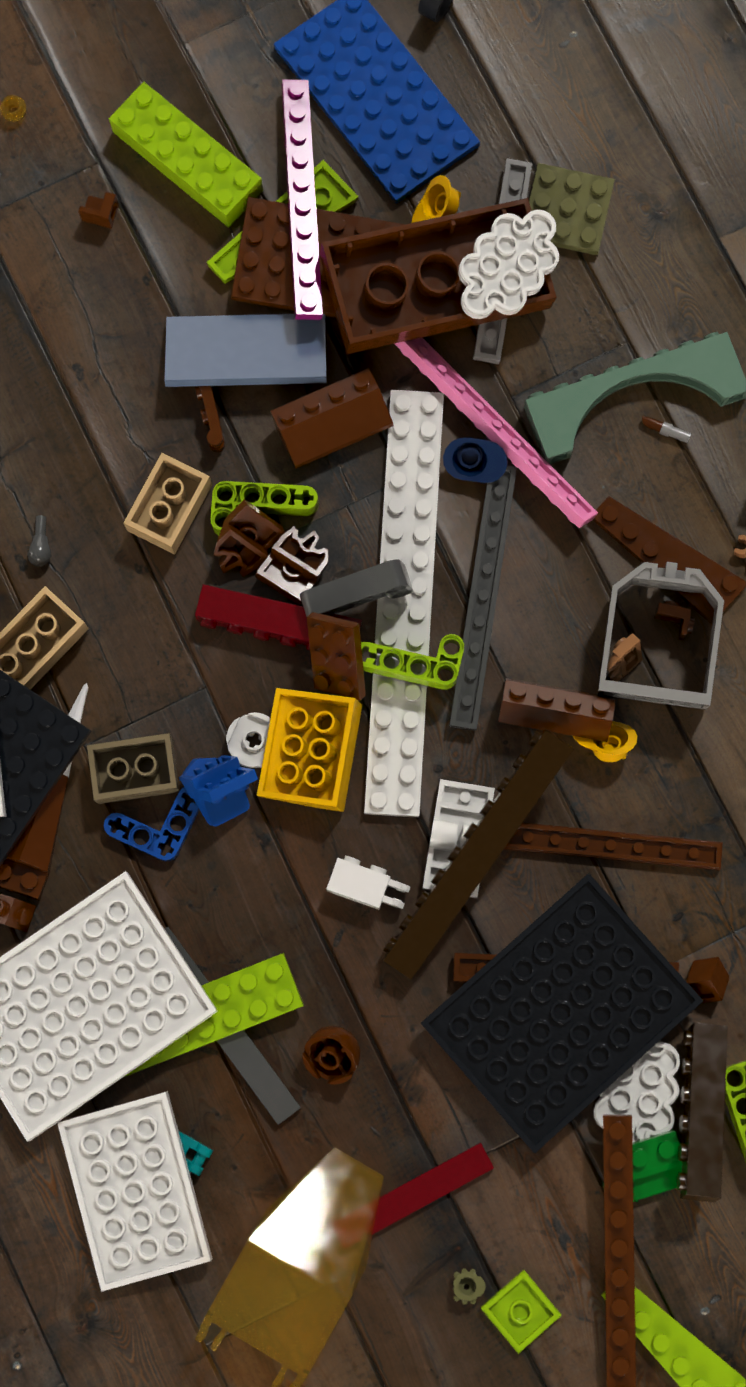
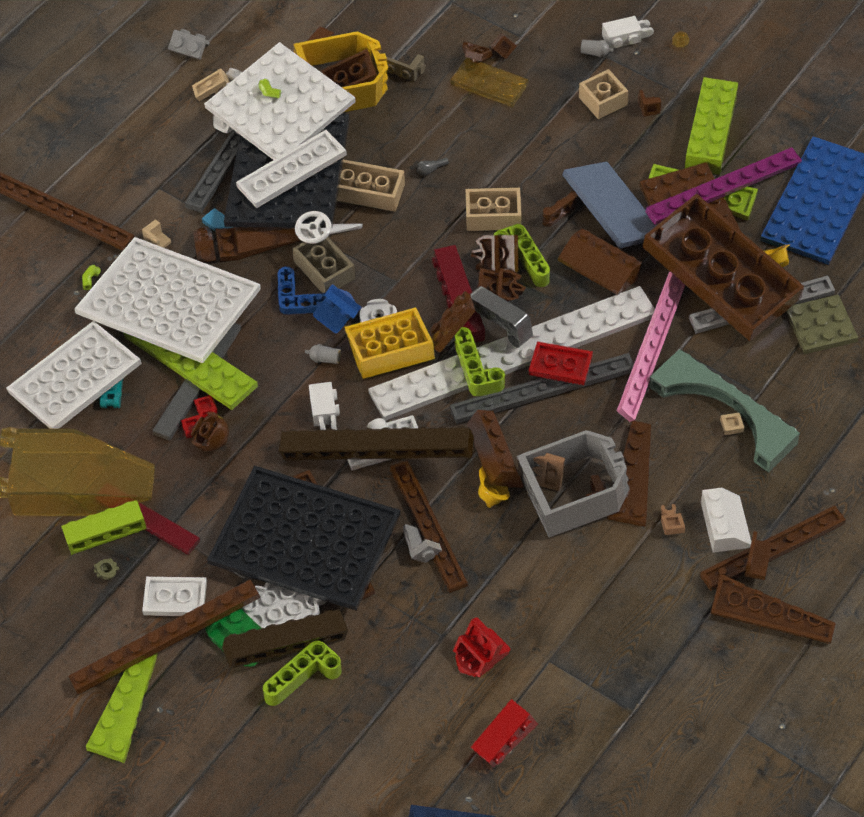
camera: 60 degrees right, 25 degrees down
(55, 258) = (603, 94): none -> tan brick
(106, 759) = (315, 235): none -> white piece
(277, 842) = (324, 354): none -> light grey piece
(282, 1037) = (203, 406): none -> red tile
(403, 1261) = (104, 527): none -> lime brick
(467, 555) = (560, 363): none -> red plate
(475, 460) = (623, 340): dark blue piece -> none
(508, 264) = (753, 291): white plate -> none
(520, 1311) = (106, 607): lime tile -> none
(554, 1217) = (173, 595): none -> white plate
(640, 877) = (419, 549): none -> light grey bracket
(660, 400) = (732, 423): none -> tan plate
(666, 429) = (716, 437): light grey piece -> none
(708, 979) = (372, 612): reddish brown panel -> none

